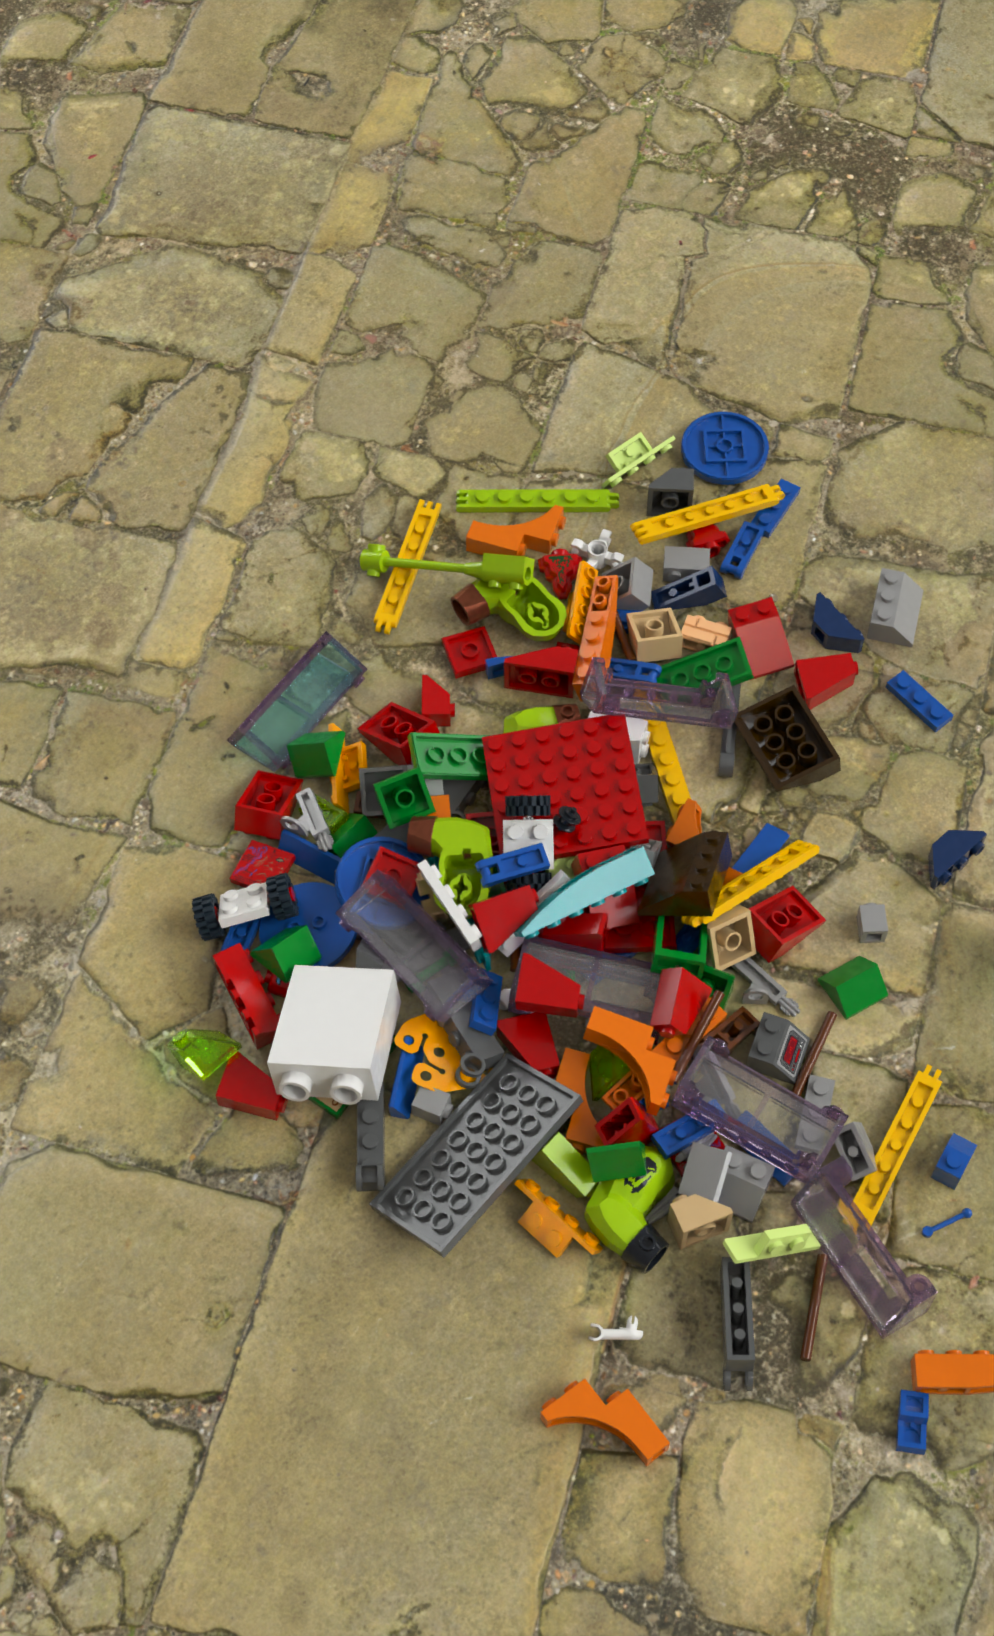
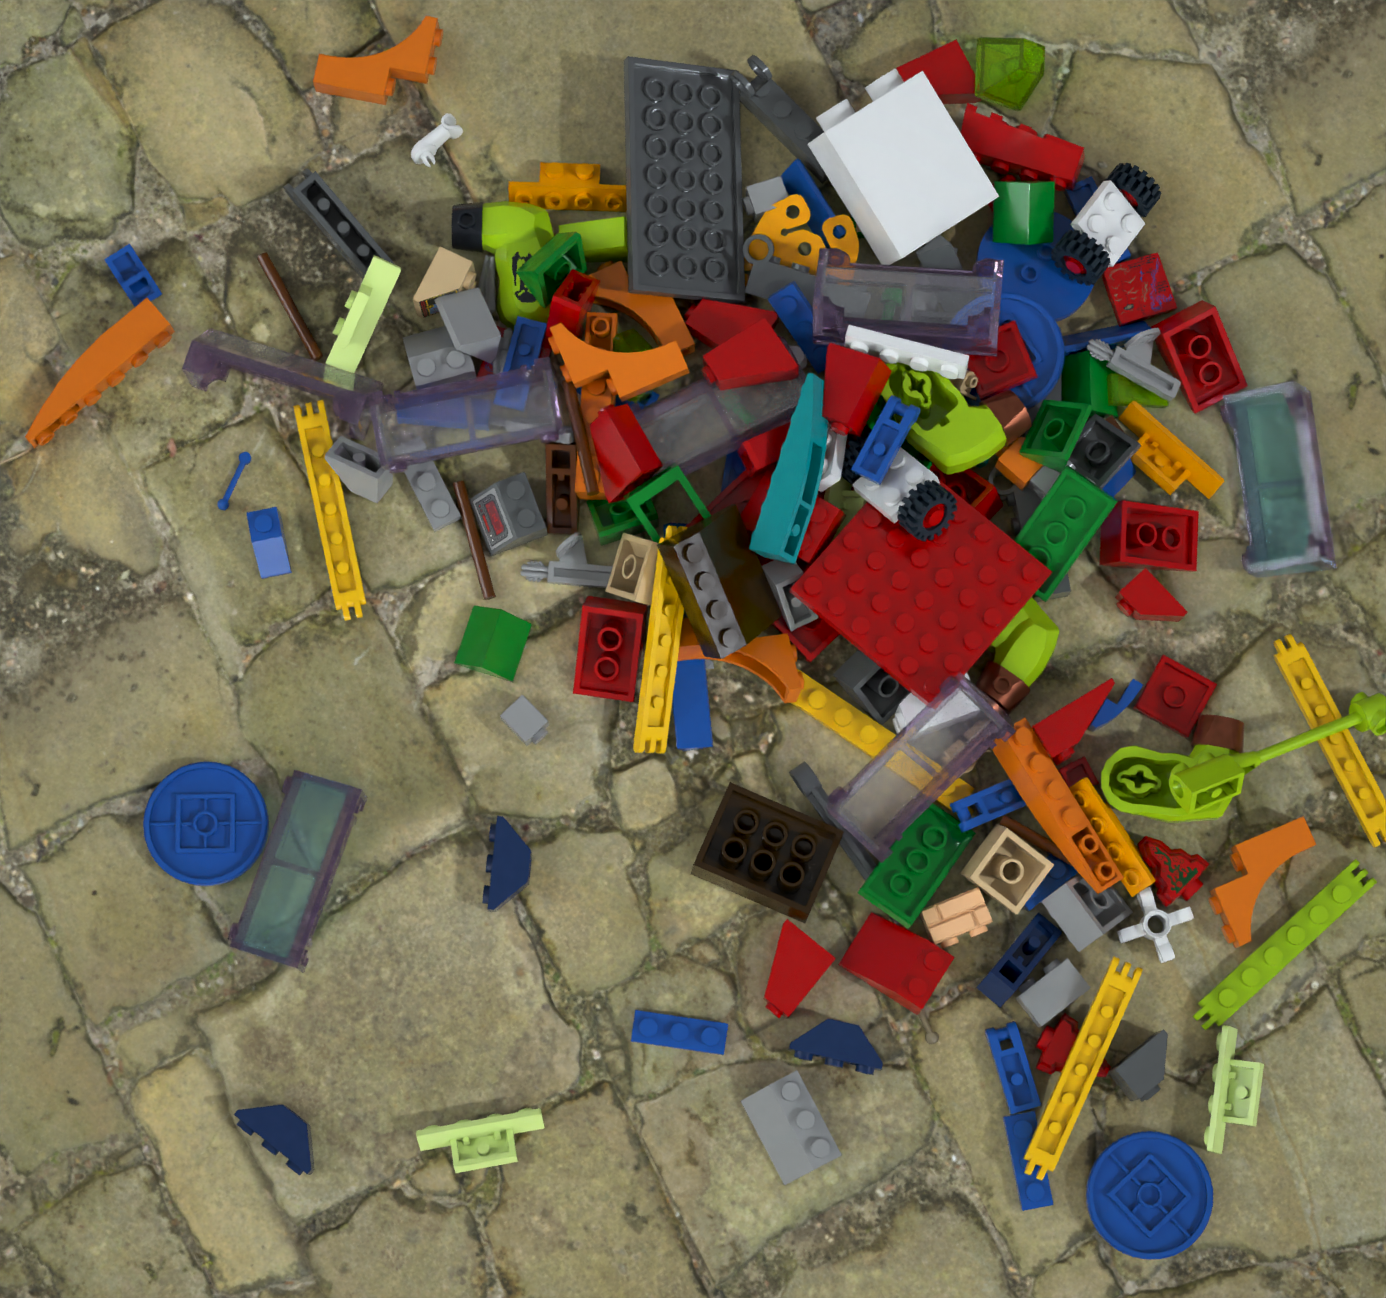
camera: 135 degrees right, 20 degrees up
(316, 754) = (1205, 440): green slope -> none
(567, 819) = (880, 534): black wheel -> none

